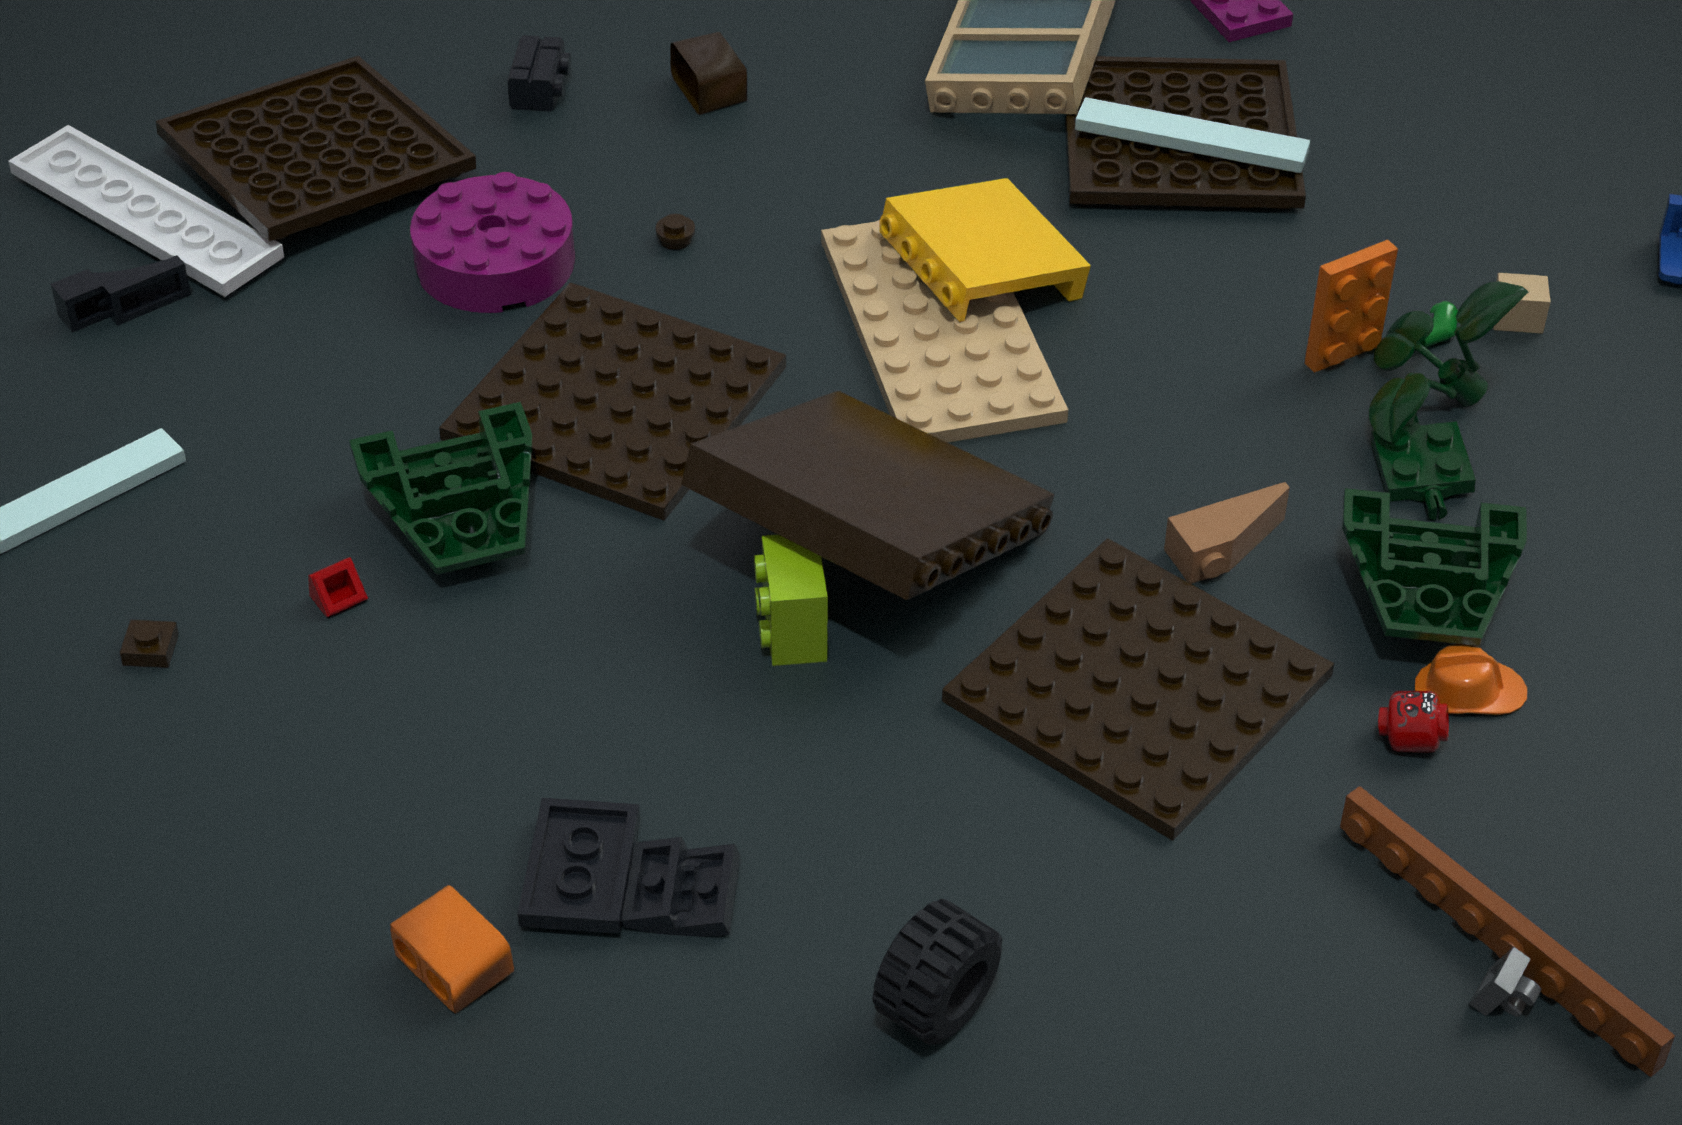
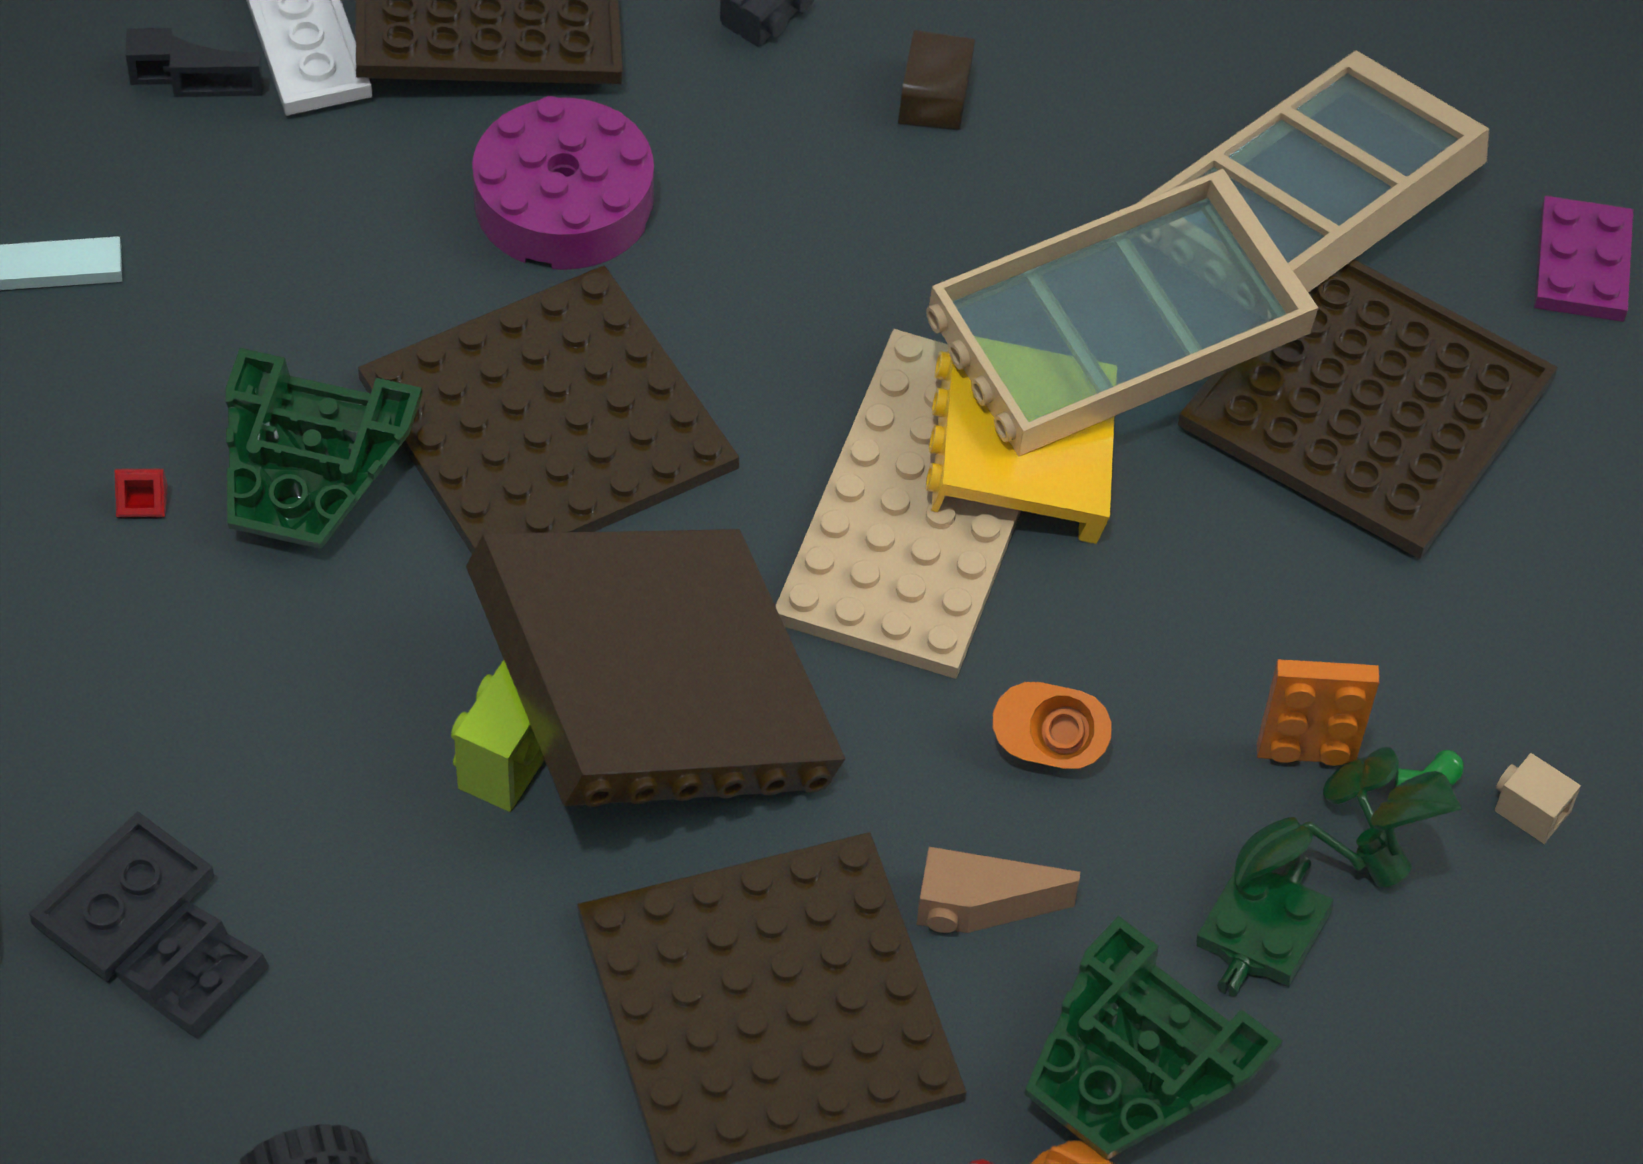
camera: 30 degrees right, 10 degrees up
(675, 231) = (754, 255): dark brown plate -> none
(993, 130) = (1120, 311): none -> clear light blue window
(1176, 405) = (1052, 725): none -> orange piece
(1192, 135) = (1374, 423): light aqua tile -> none

